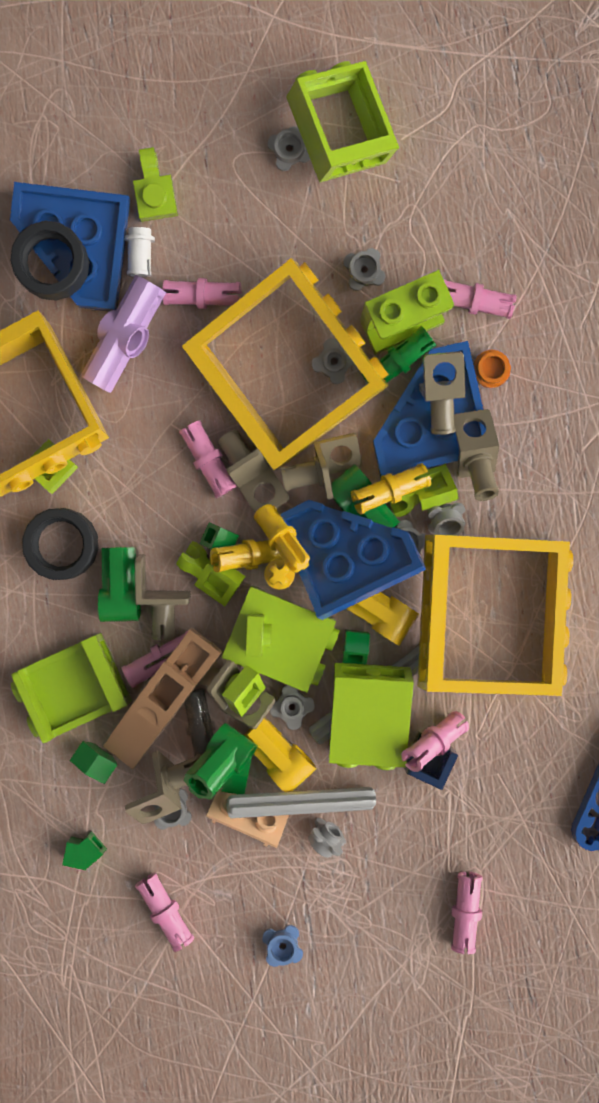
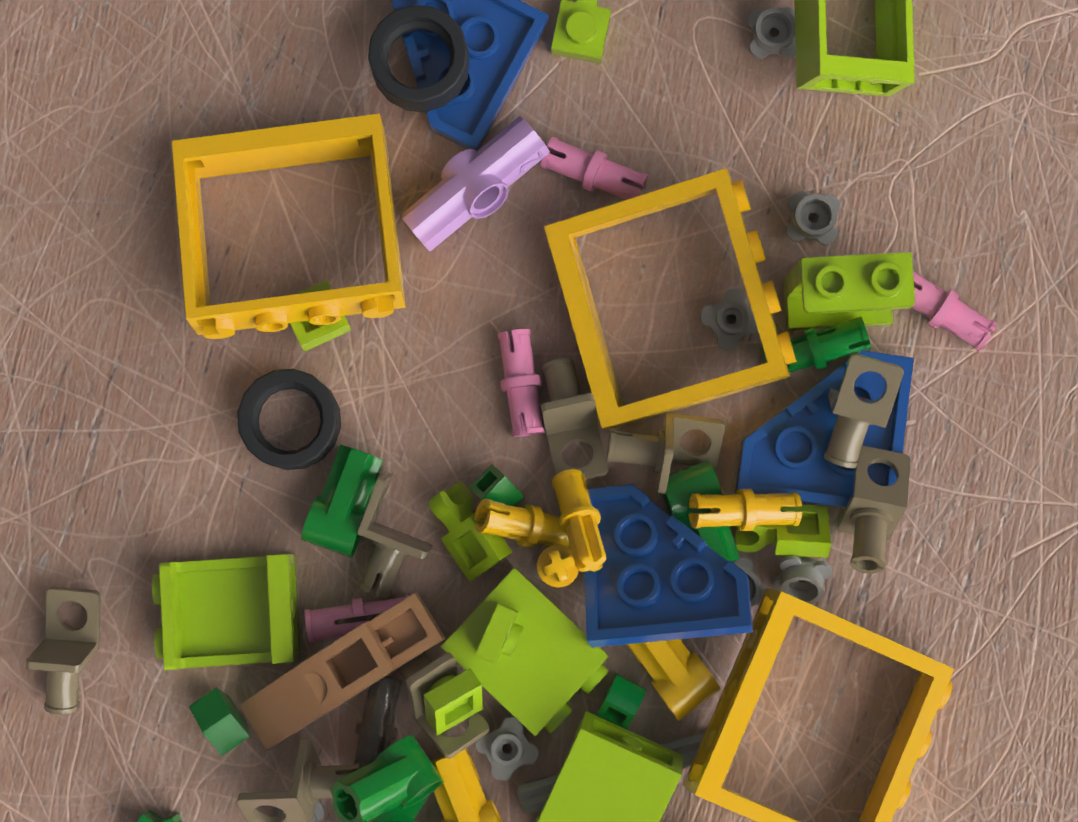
camera: 25 degrees right, 5 degrees down
(139, 251) = (535, 89): white pin -> none
(492, 368) = (932, 405): orange plate -> none

